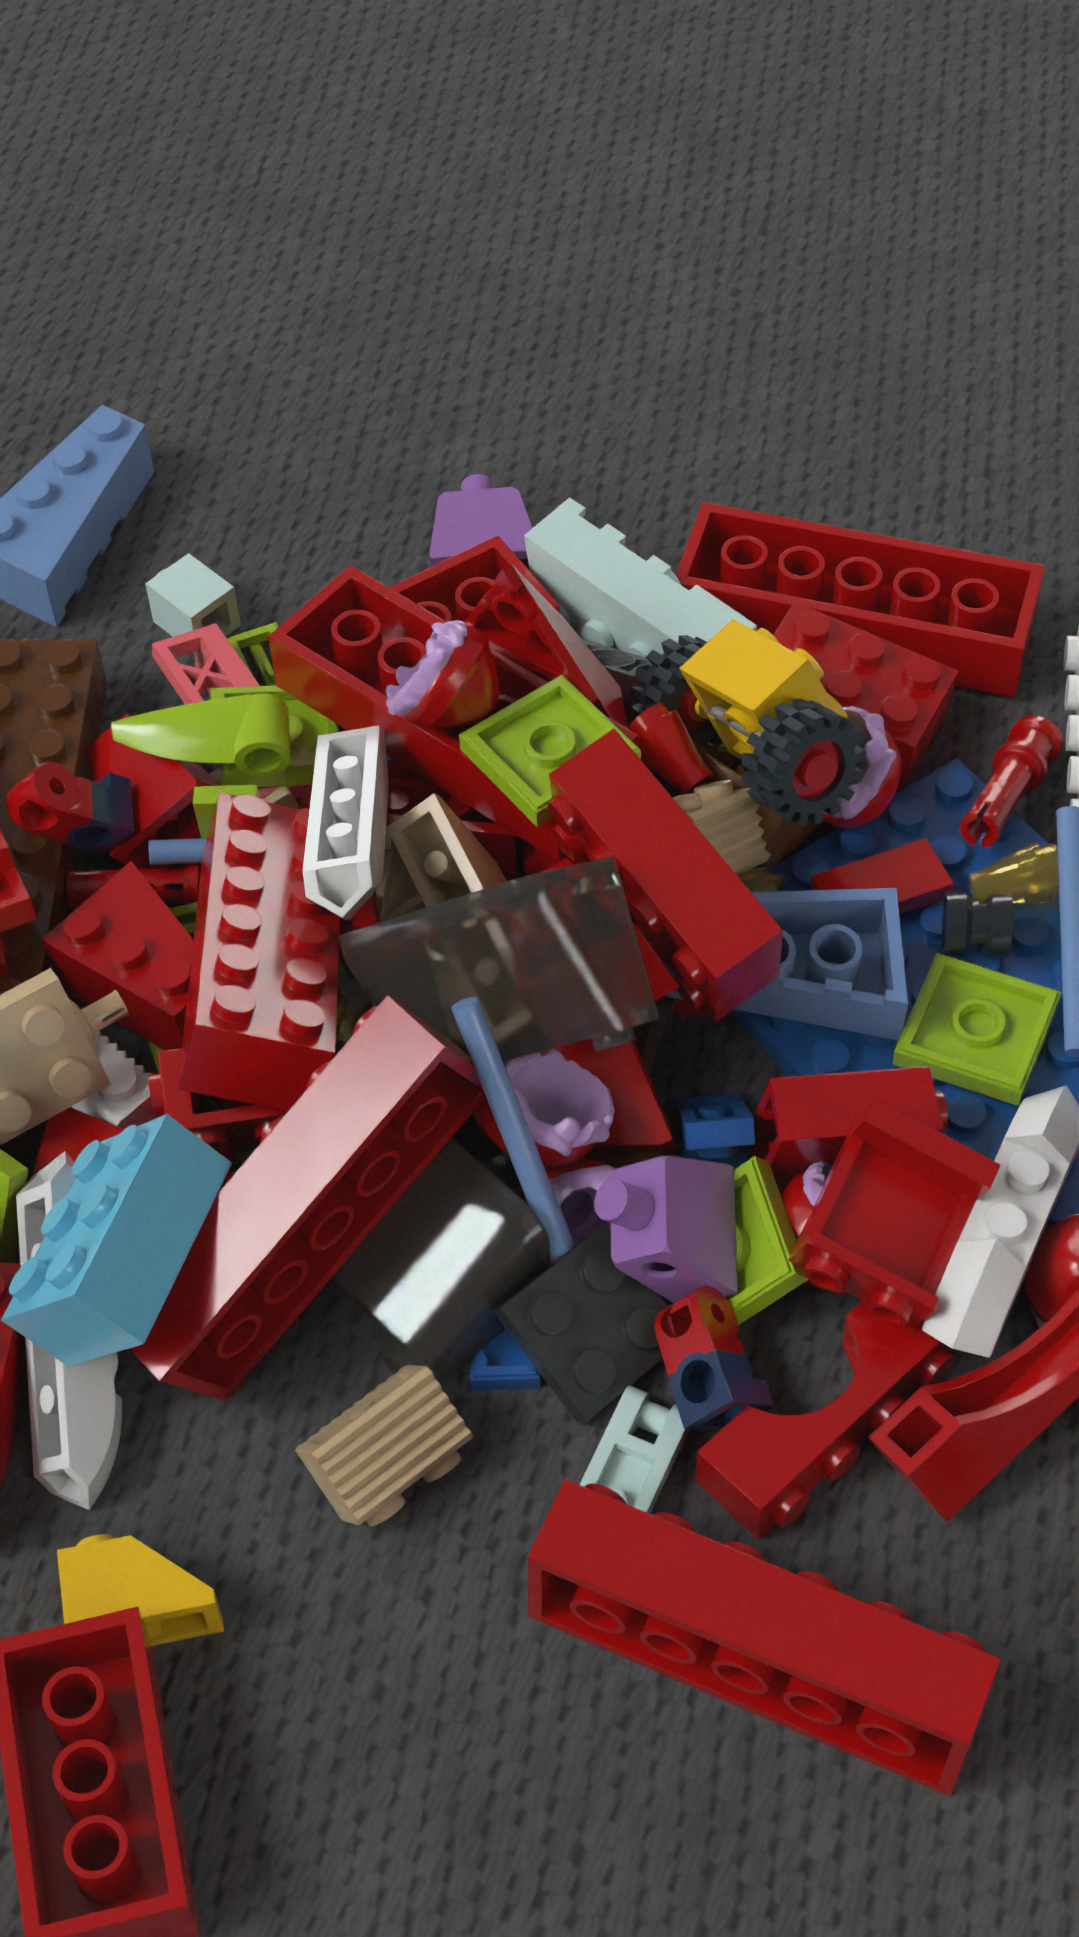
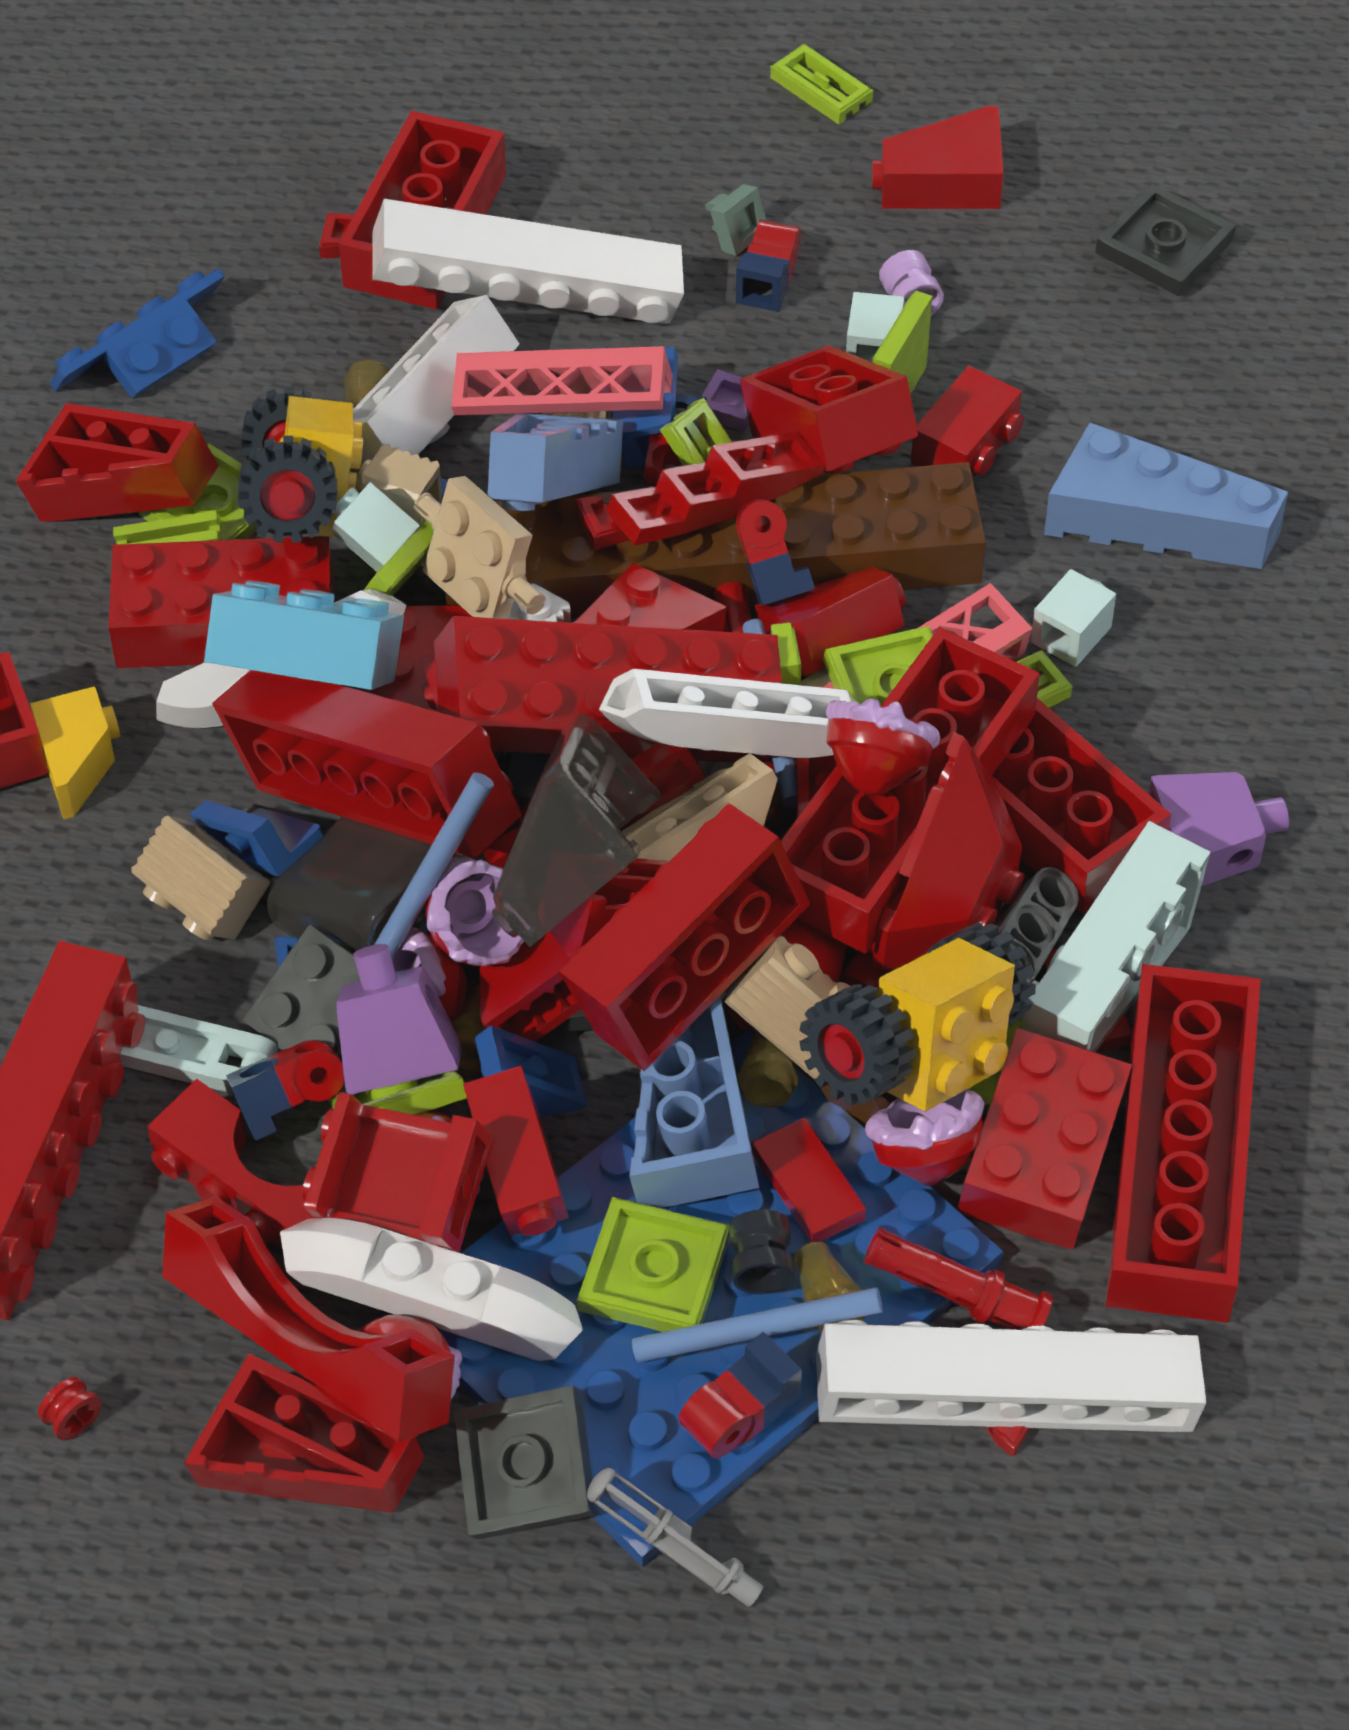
camera: 80 degrees right, 0 degrees up
(224, 730) = (848, 628): lime piece -> none
(333, 1370) = (261, 838): none -> blue panel
(532, 740) = (837, 842): lime tile -> none
(670, 749) = (886, 949): red cone -> none

